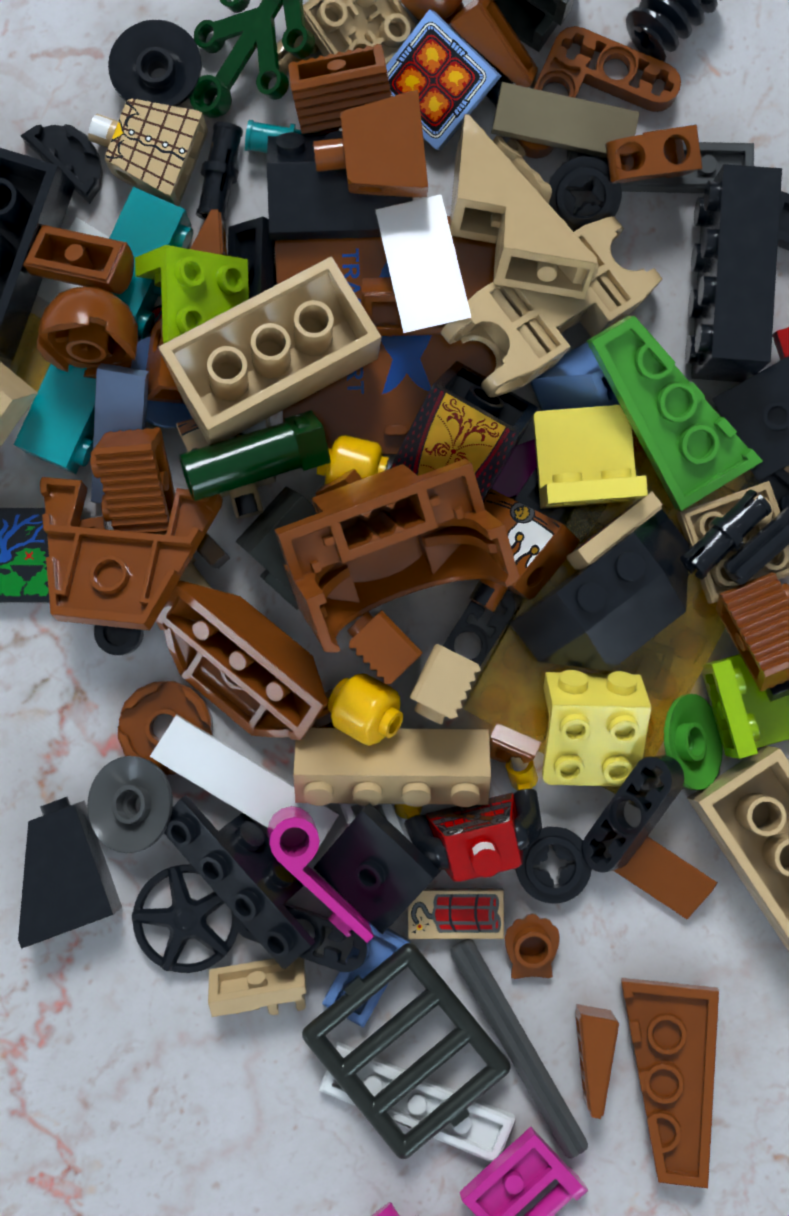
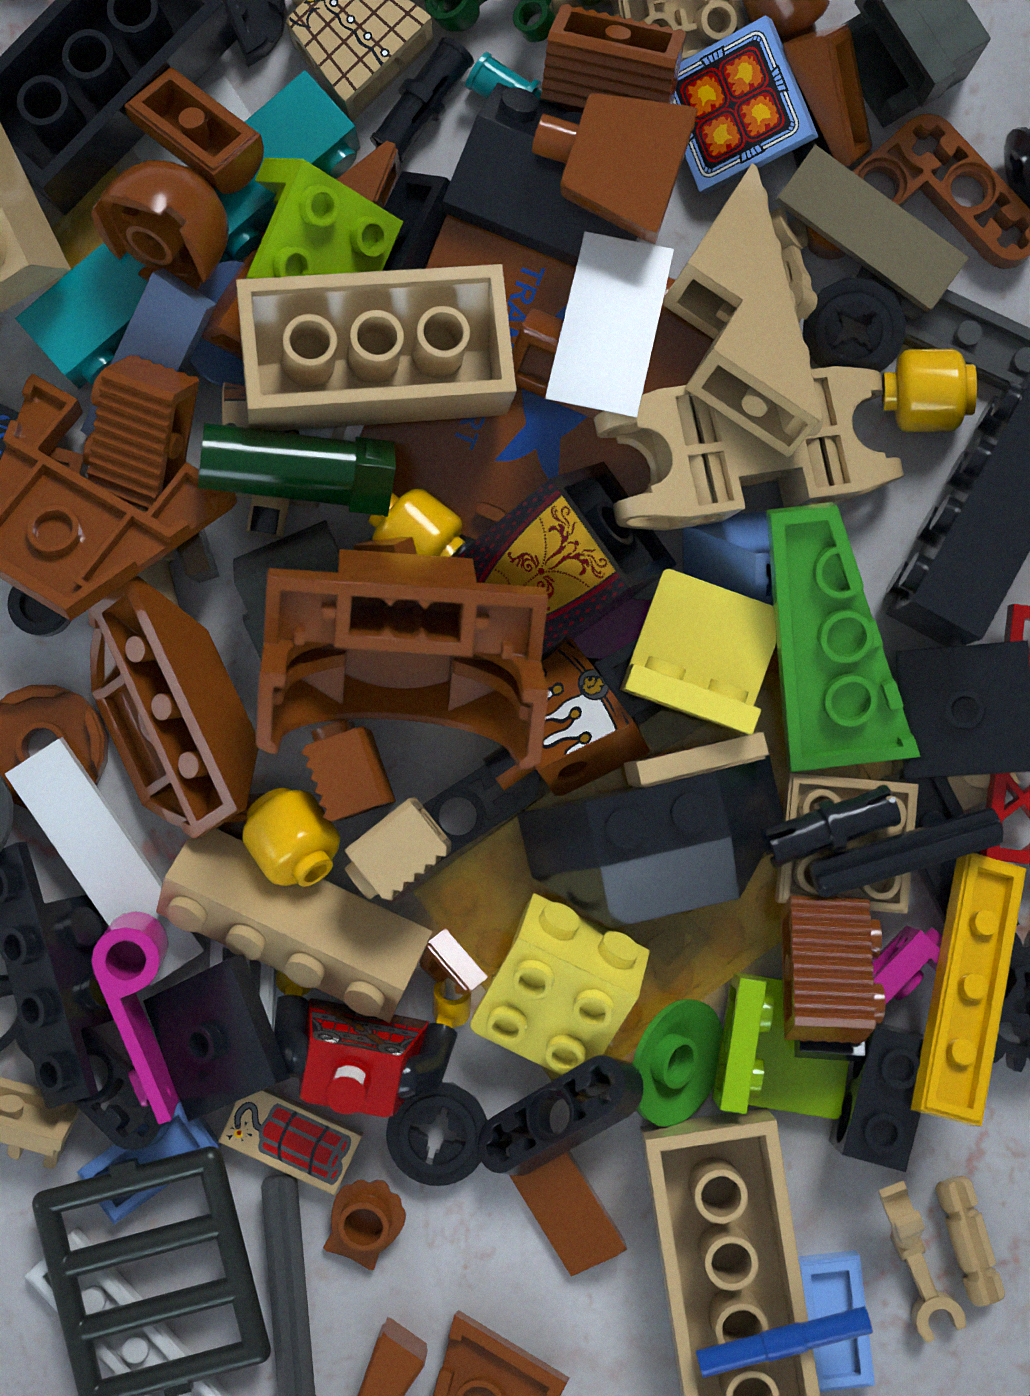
camera: 25 degrees right, 0 degrees up
(654, 155) = (960, 319): dark orange leg -> none
(654, 213) = (930, 390): none -> yellow head

